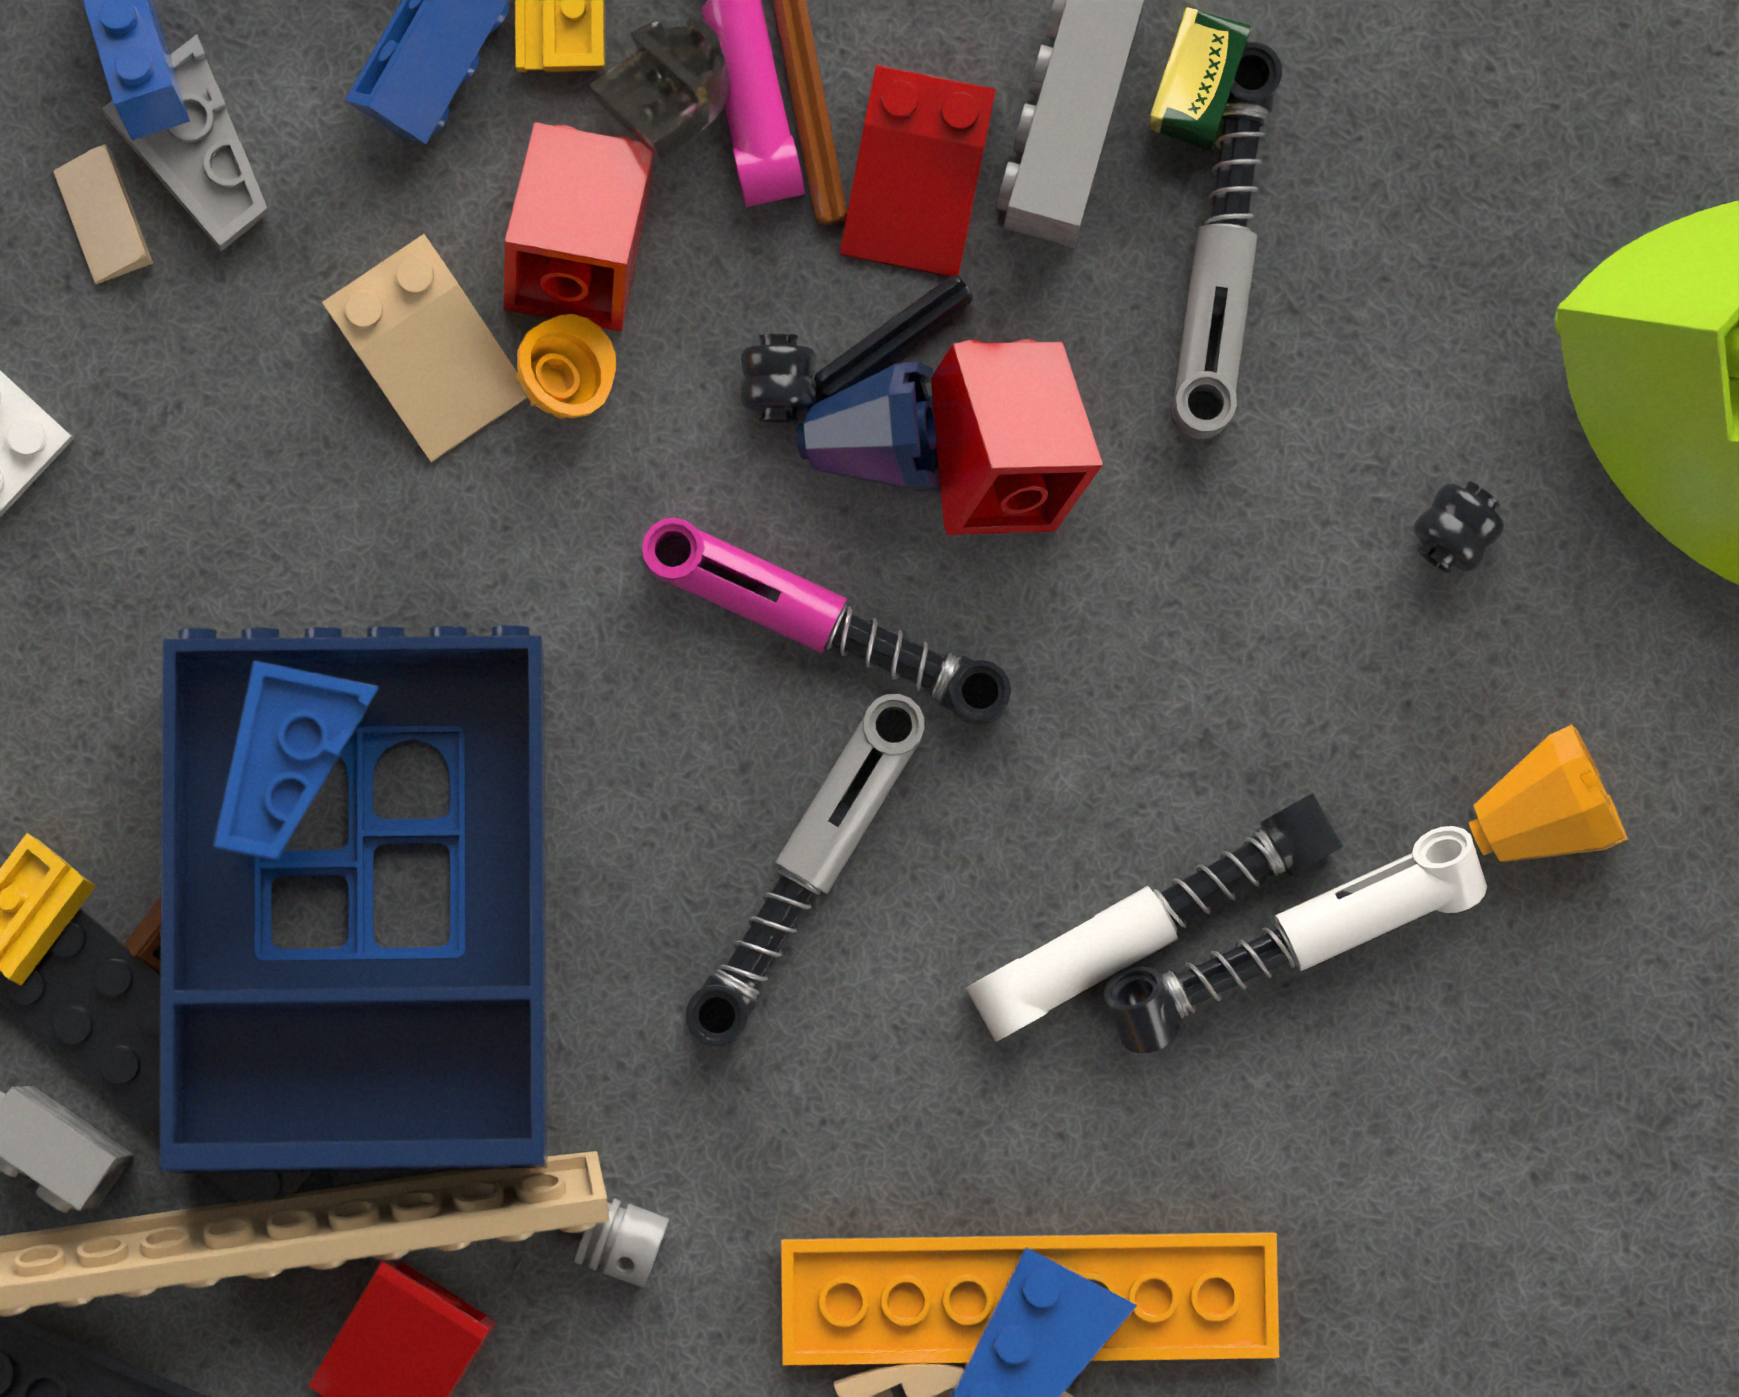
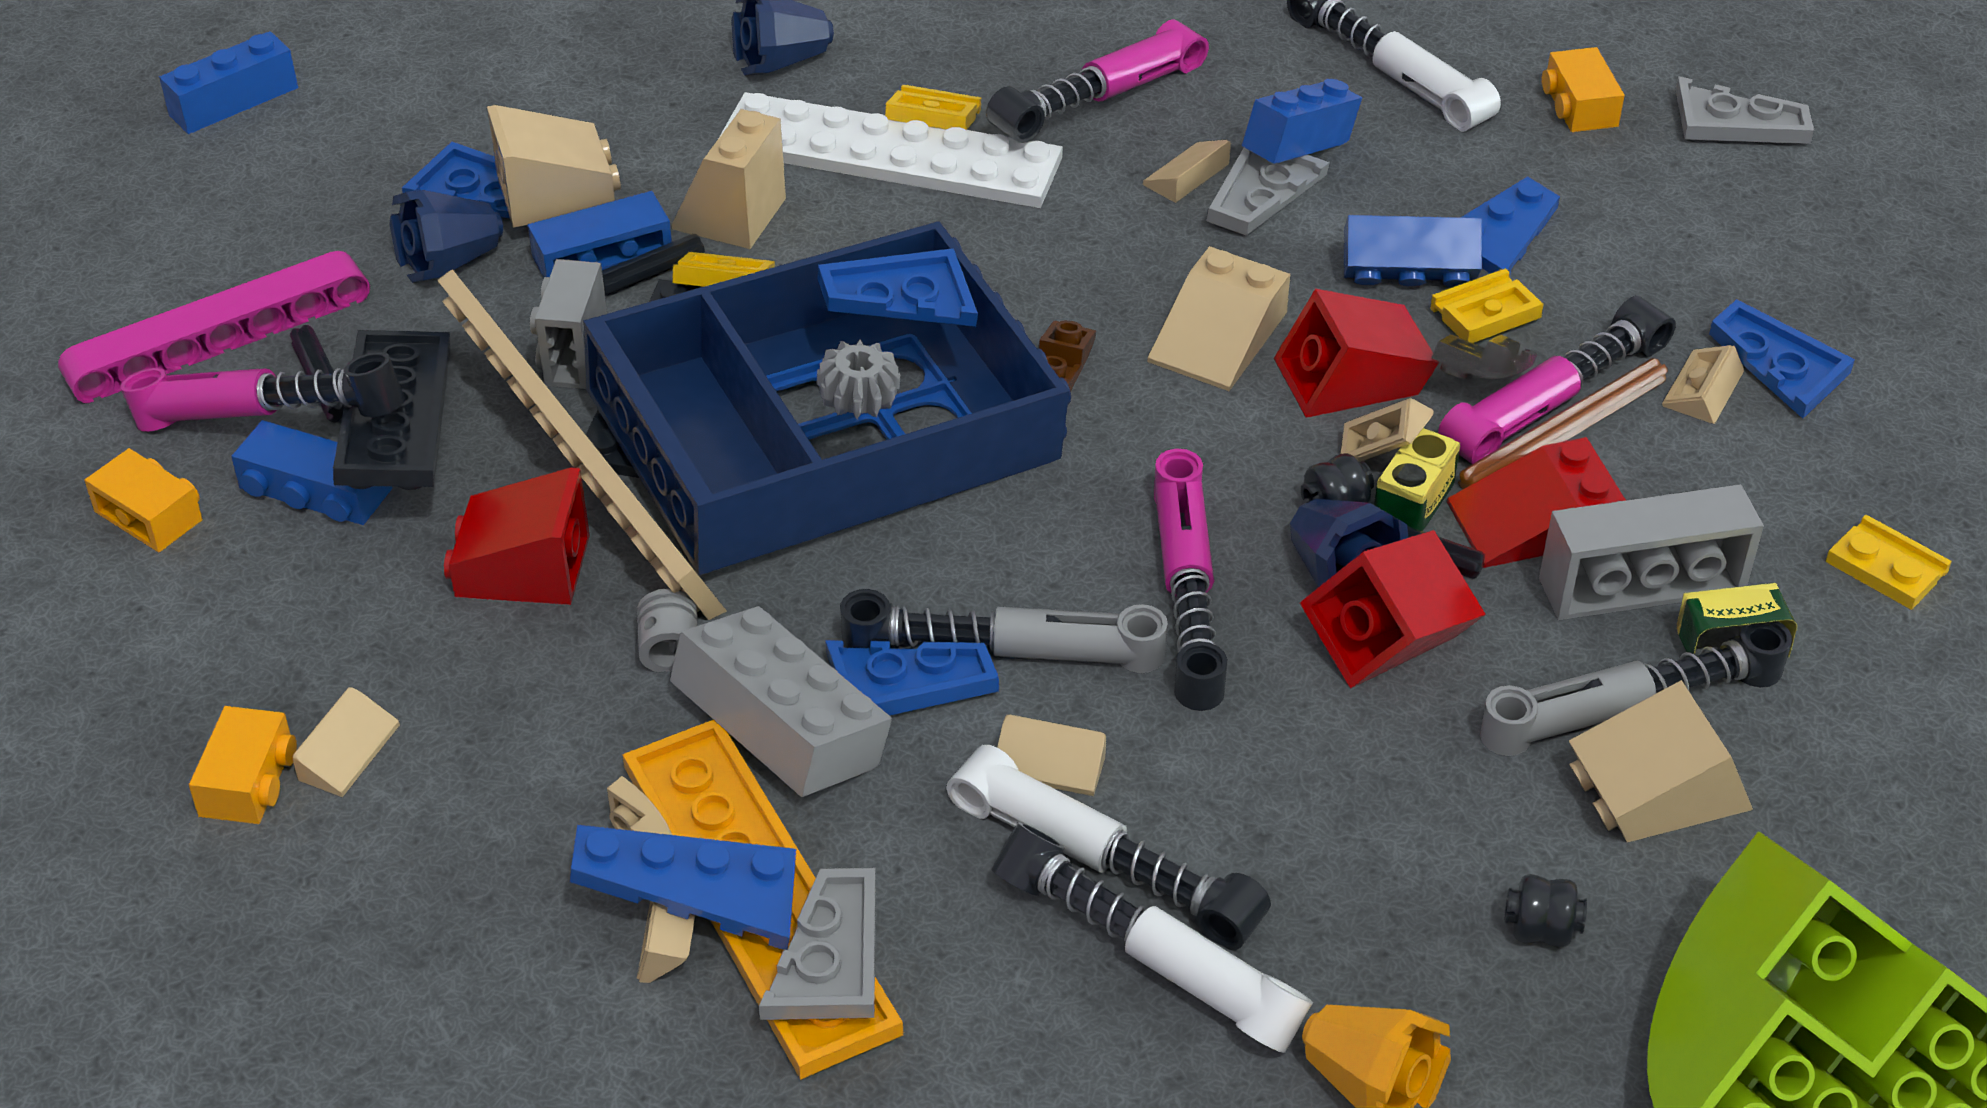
camera: 70 degrees right, 40 degrees down
(383, 570) = (1067, 348): none -> reddish brown slope
(447, 871) = (858, 379): none -> light grey gear
(566, 366) = (1259, 381): light orange piece -> none
(735, 280) = (1385, 429): none -> tan slope
(801, 1169) = (780, 700): none -> light grey brick
(802, 282) = (1418, 504): none -> light yellow piece
(812, 1007) = (915, 677): none -> blue wing
(1001, 910) = (1054, 753): none -> tan slope
(1173, 1270) = (832, 953): none -> light grey wing
(1351, 298) = (1658, 767): none -> tan slope

